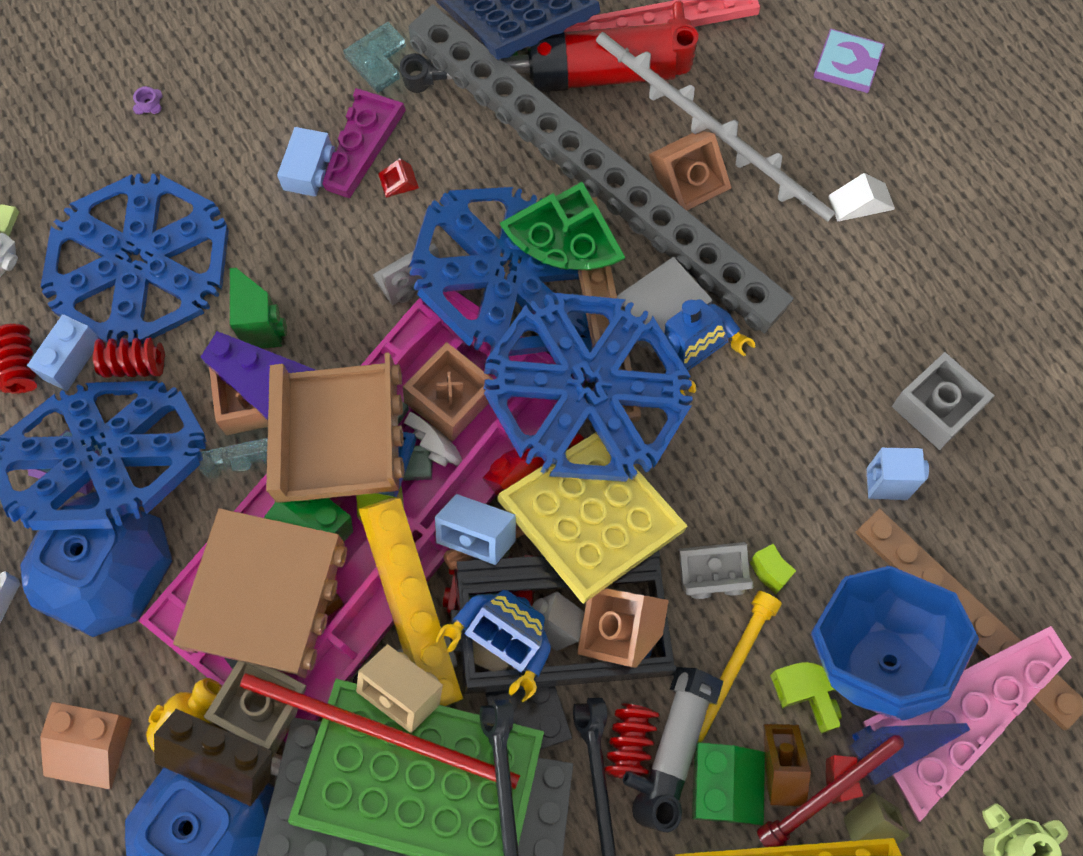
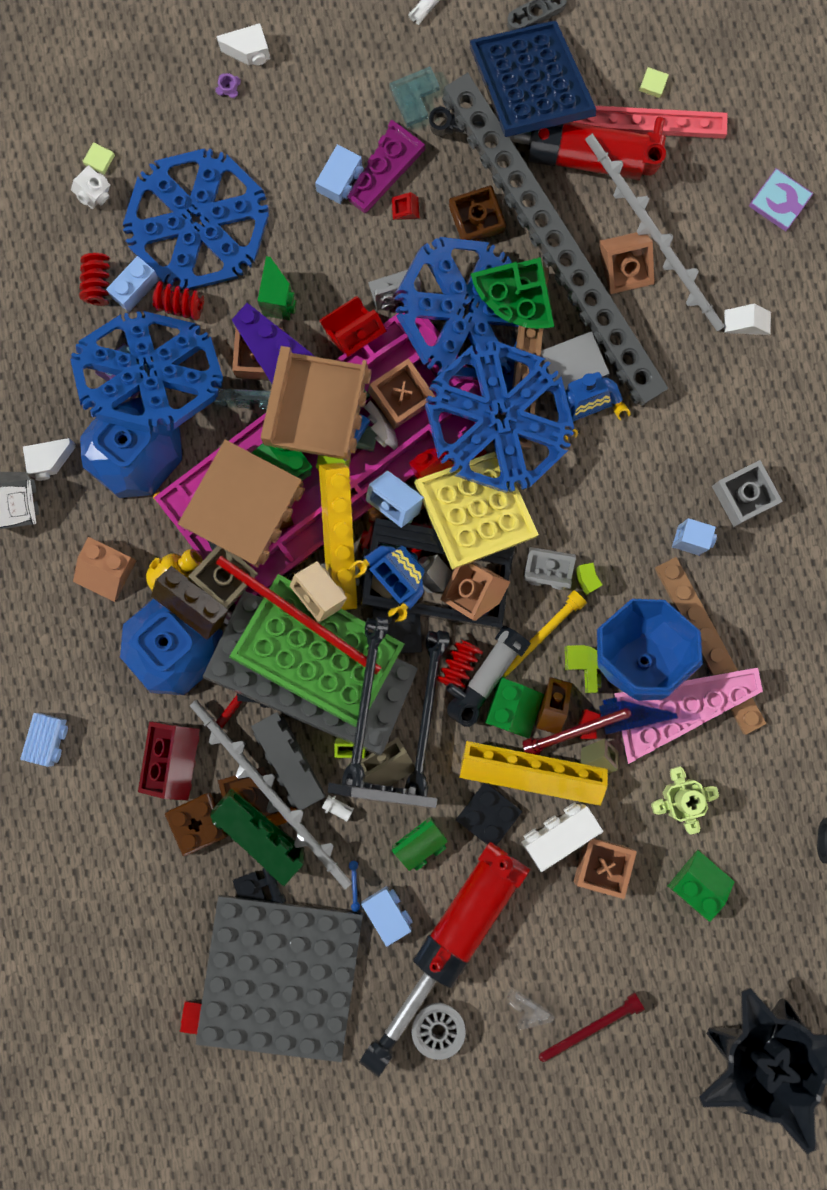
camera: 10 degrees right, 15 degrees up
(159, 52) = (245, 45): none -> white slope
(364, 327) = (352, 326): none -> red panel
(492, 148) = (485, 204): none -> reddish brown brick

